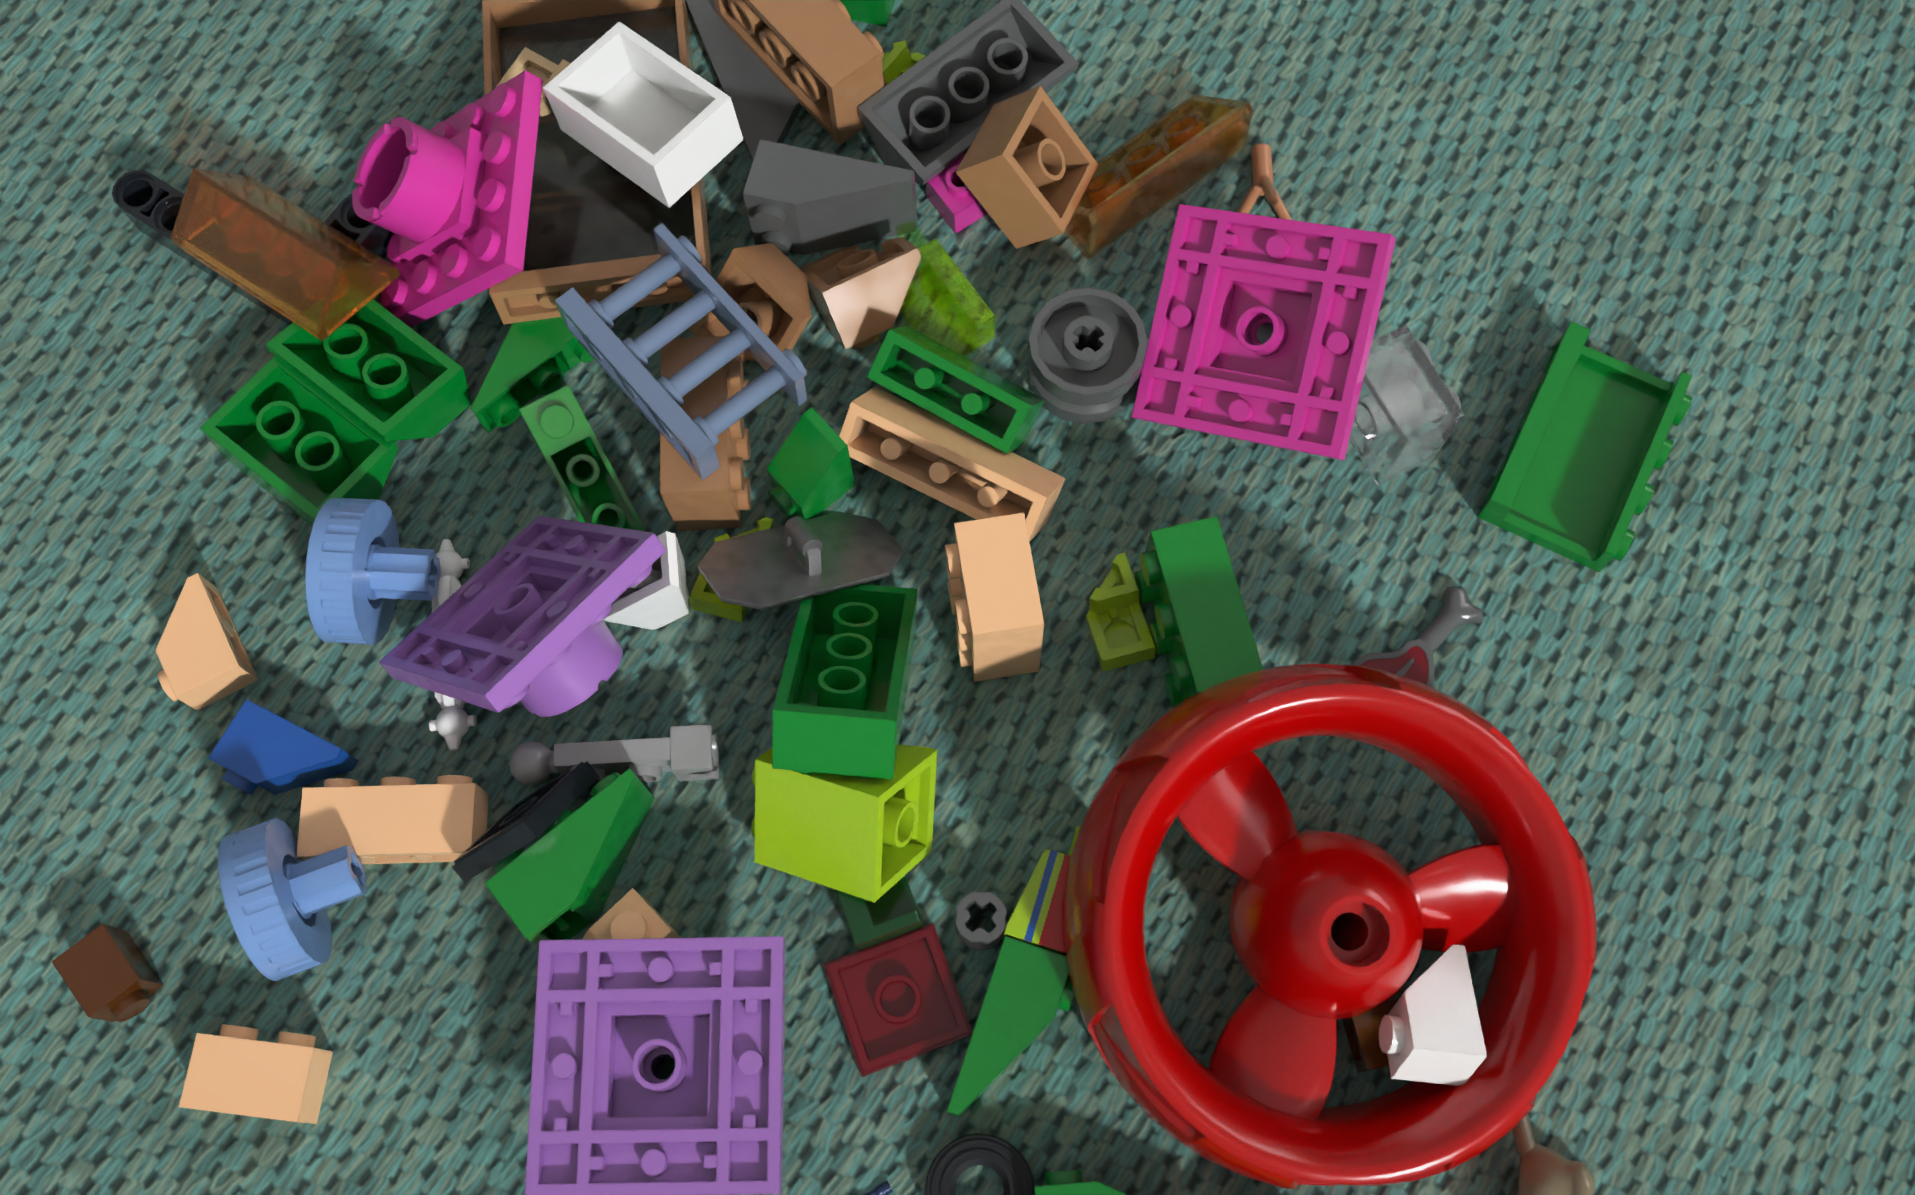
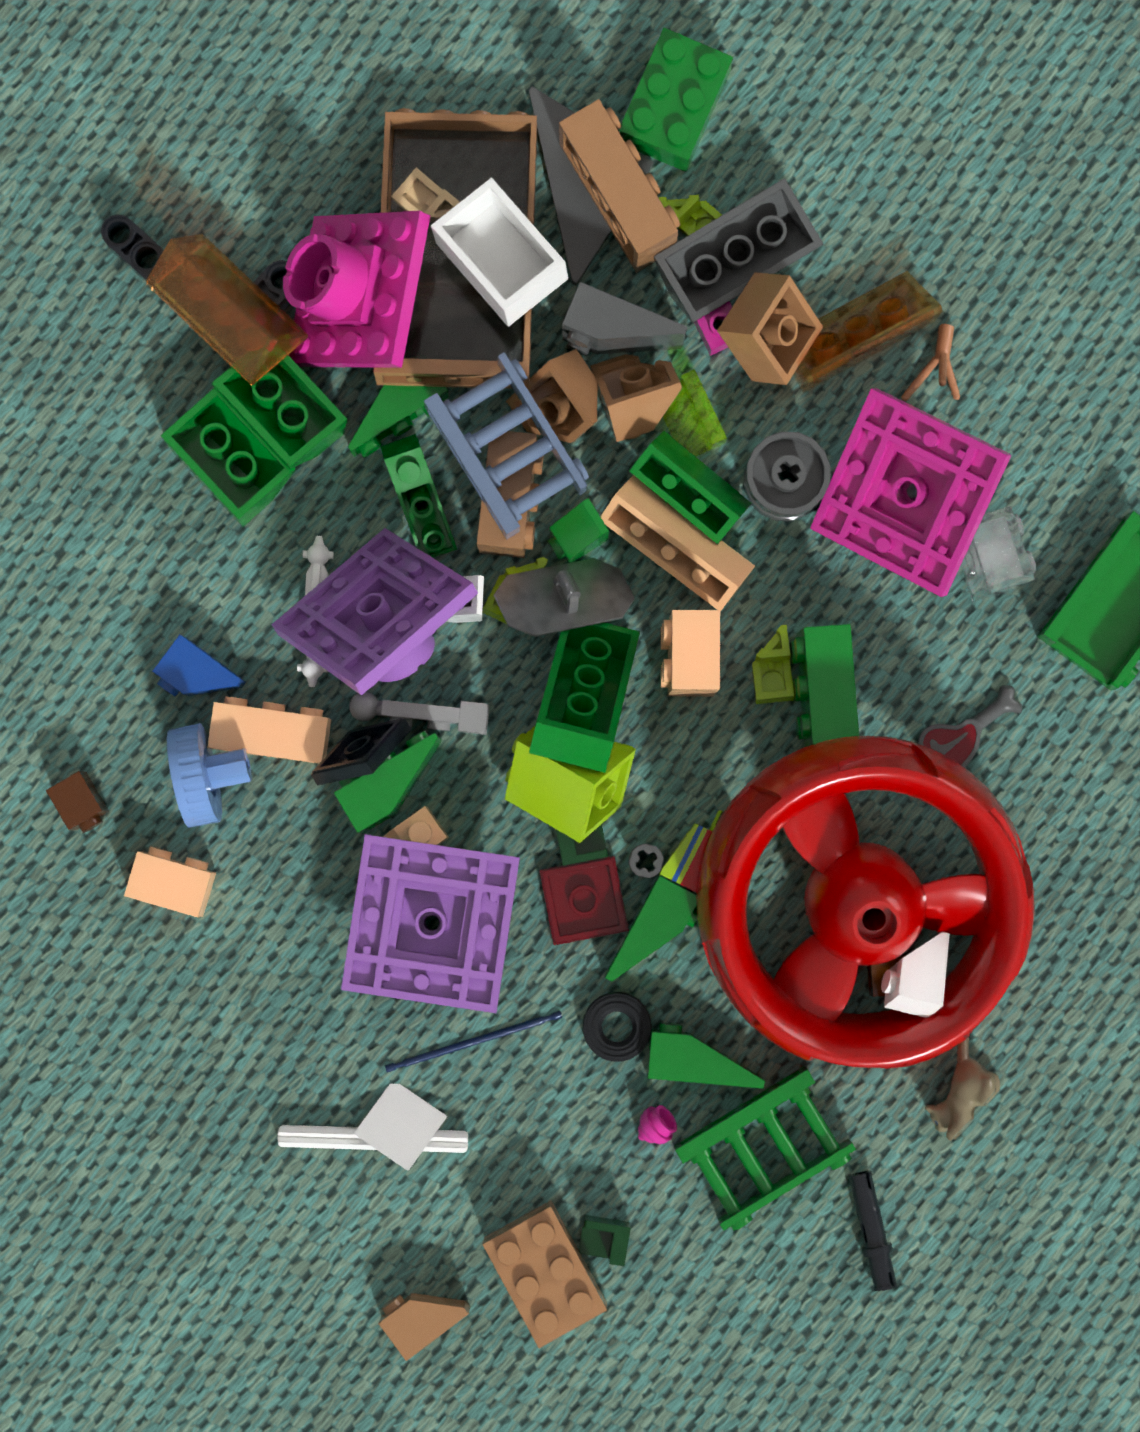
camera: 10 degrees right, 15 degrees up
(202, 648) = (148, 589): light nougat slope -> none
(361, 571) = (266, 559): medium blue piece -> none

